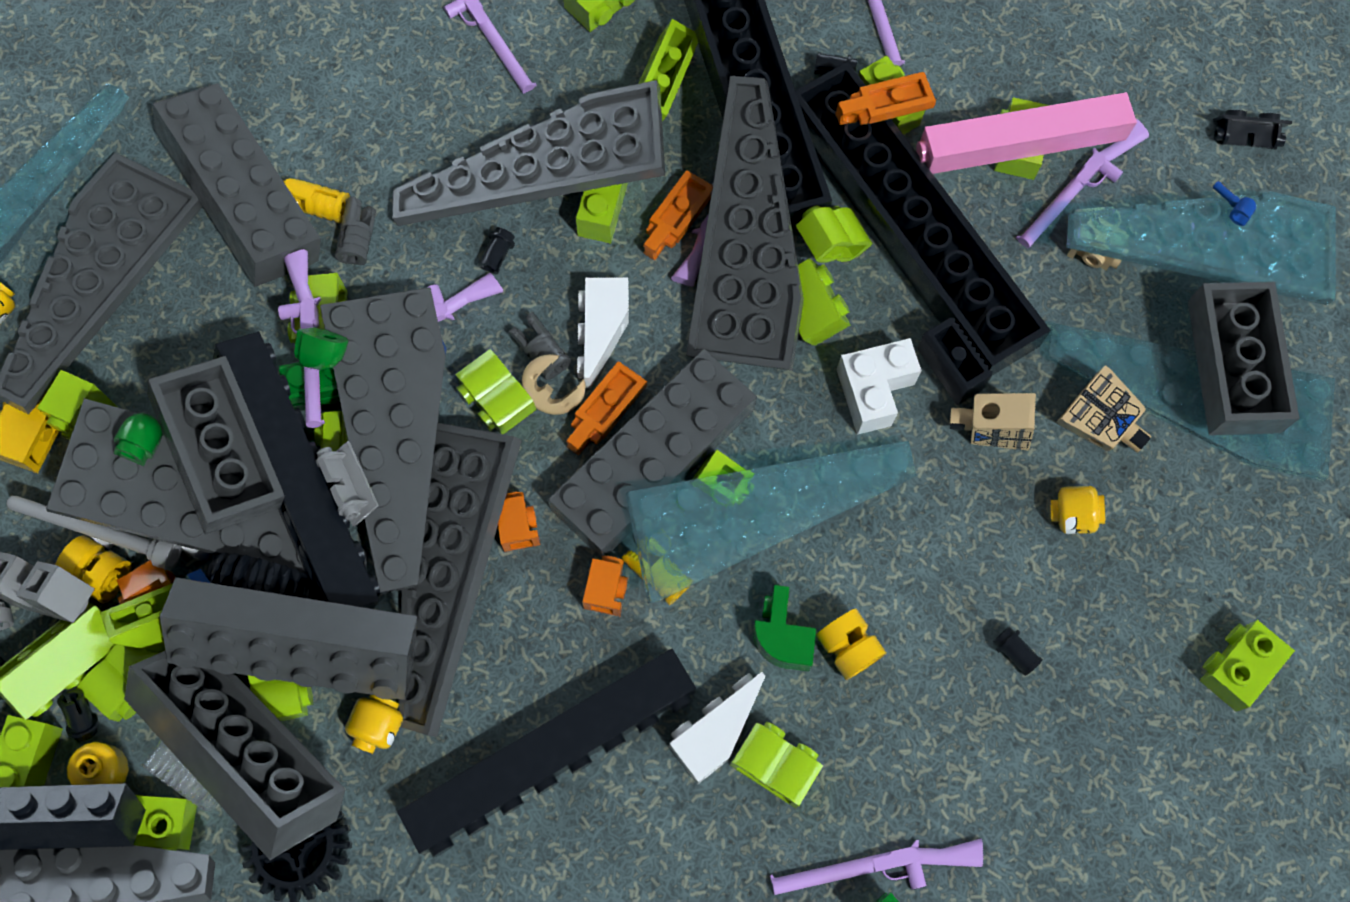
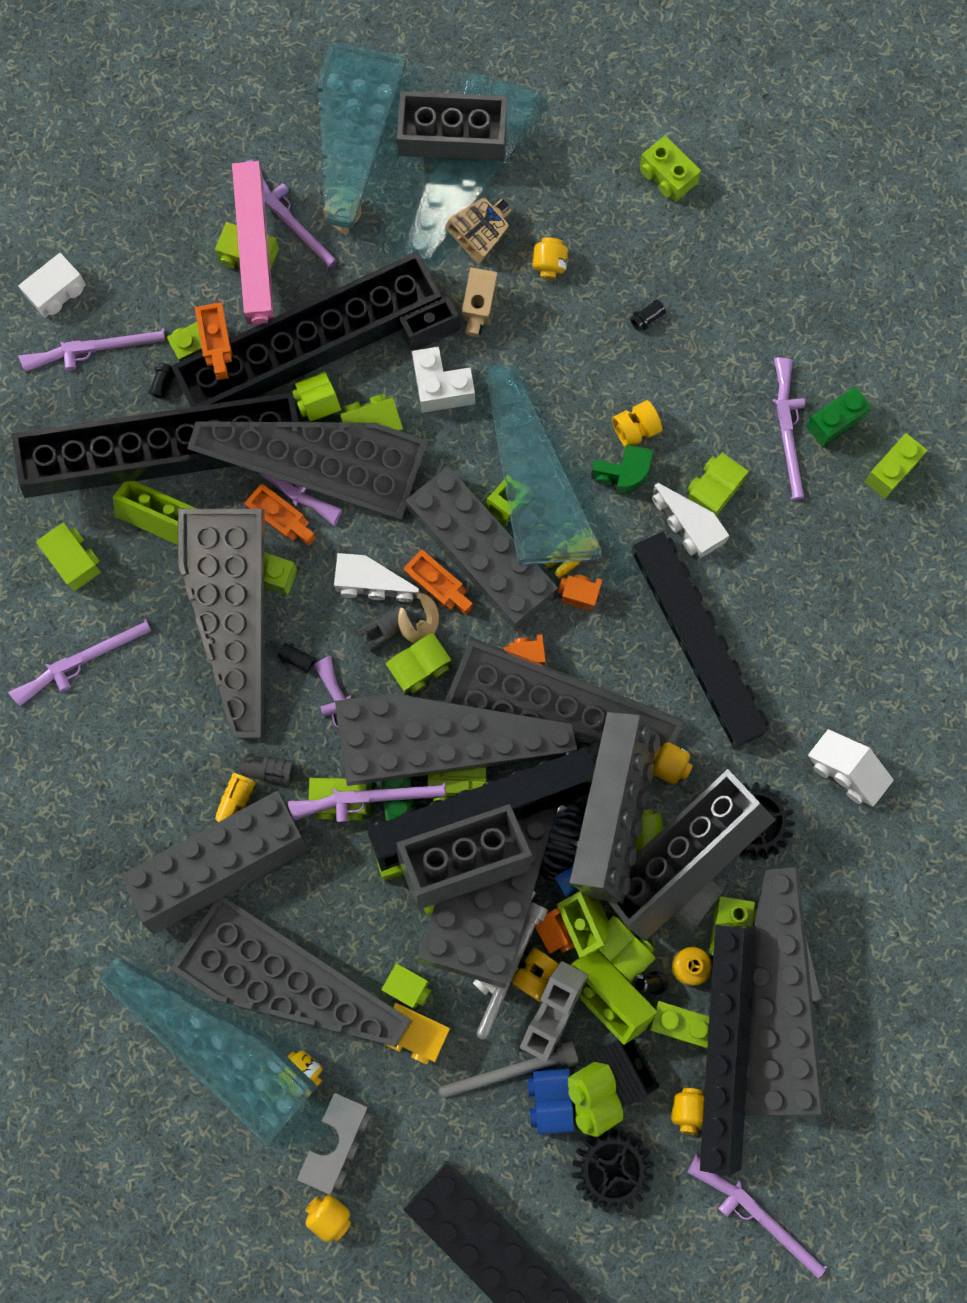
camera: 80 degrees left, 5 degrees up
(138, 438) = (454, 914): green piece -> none
(319, 348) = (387, 778): green piece -> none
(350, 485) = (494, 764): light grey hinge -> none
(1243, 207) = (332, 102): blue hand -> none
(1264, 130) = (254, 96): black hinge -> none

